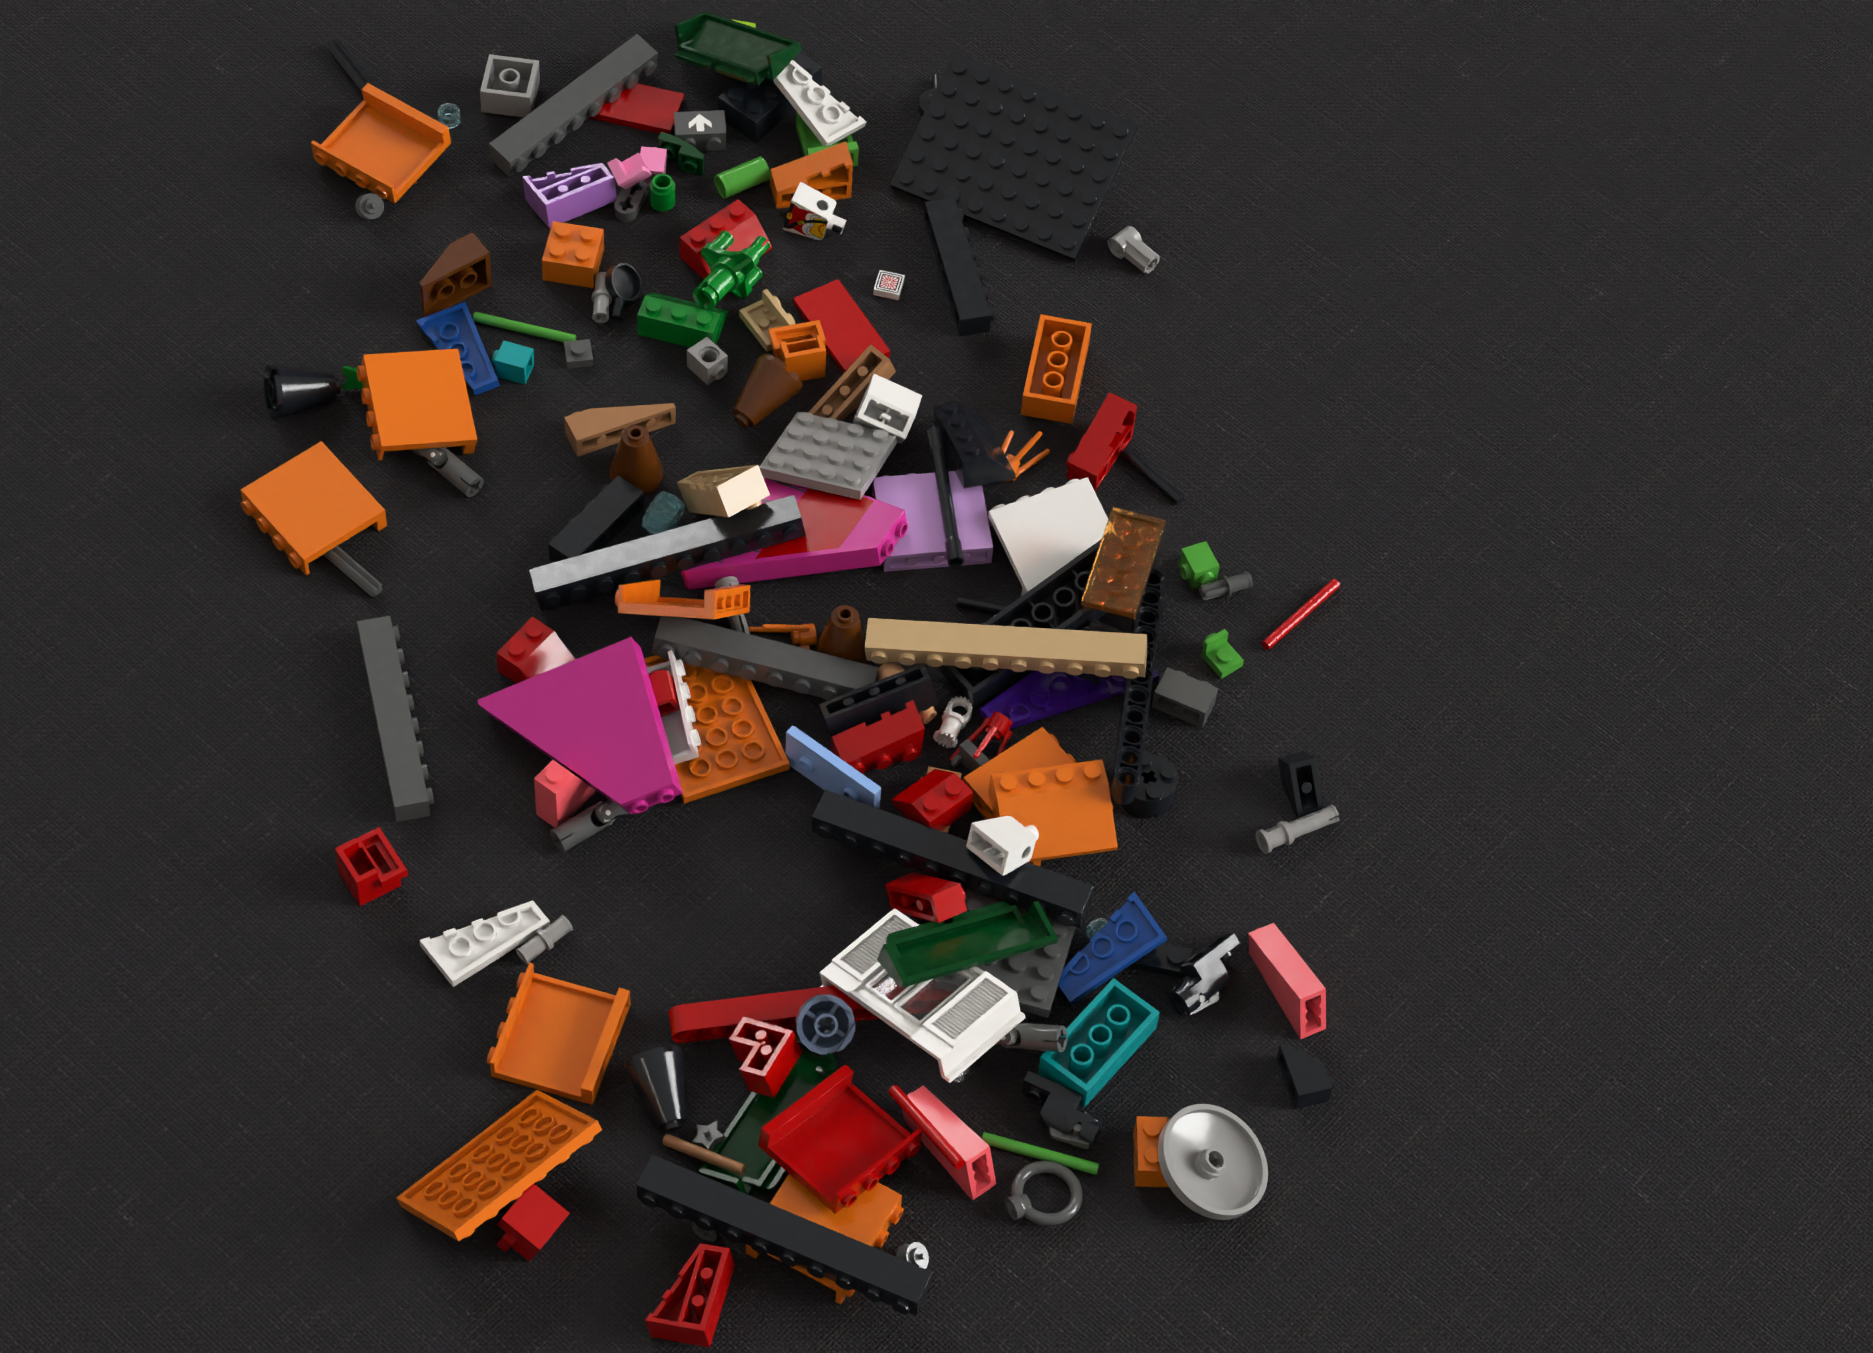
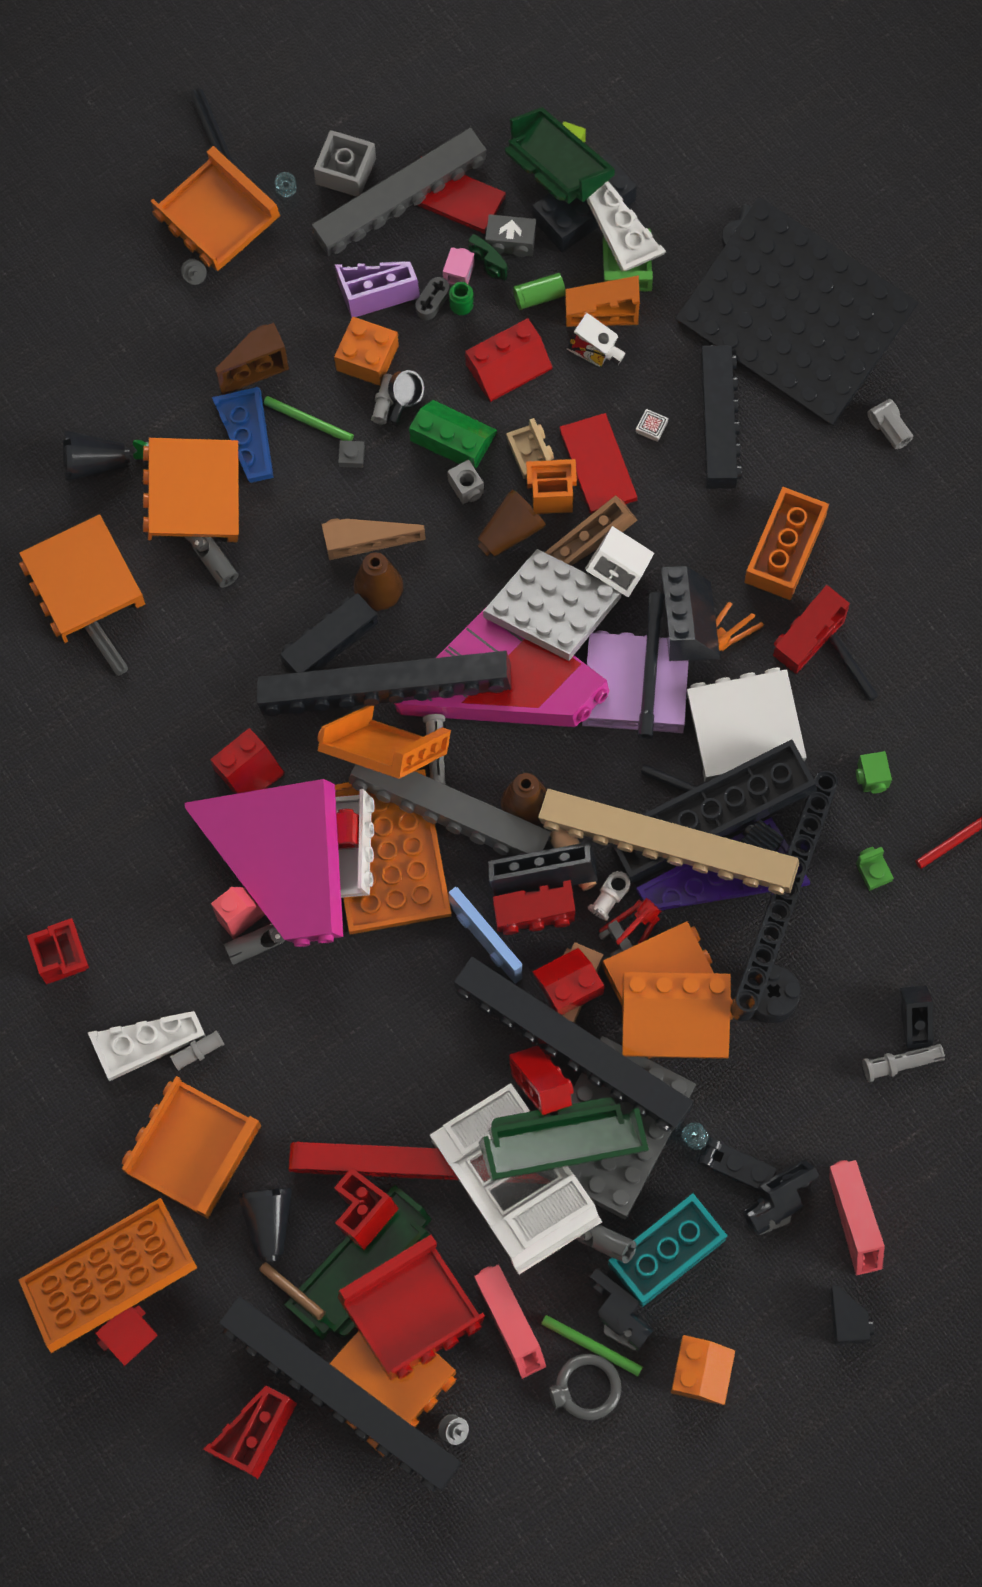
camera: 20 degrees right, 15 degrees up
(393, 718) = (110, 805): dark grey brick -> none
(513, 362) = (290, 455): teal brick -> none
(629, 171) = (433, 273): bright pink panel -> none
(663, 513) = (390, 639): clear light blue gear -> none
(708, 1136) = (300, 1272): dark grey piece -> none
(724, 490) = (445, 633): tan wedge -> none
(729, 270) = (501, 394): green wheel -> none
(802, 634) = (490, 779): orange plant -> none
(825, 1024) = (420, 1192): sand blue cylinder -> none
(927, 1127) = (489, 1312): red bar -> none
(1002, 842) = (619, 1045): white torso -> none
(1116, 946) = (703, 1158): blue wing -> none
(1123, 562) = (795, 775): clear orange plate -> none
(1184, 697) = (829, 907): dark grey brick -> none
(1212, 1161) = (743, 1392): light grey dish -> none
(1226, 586) = (895, 797): dark grey axle -> none

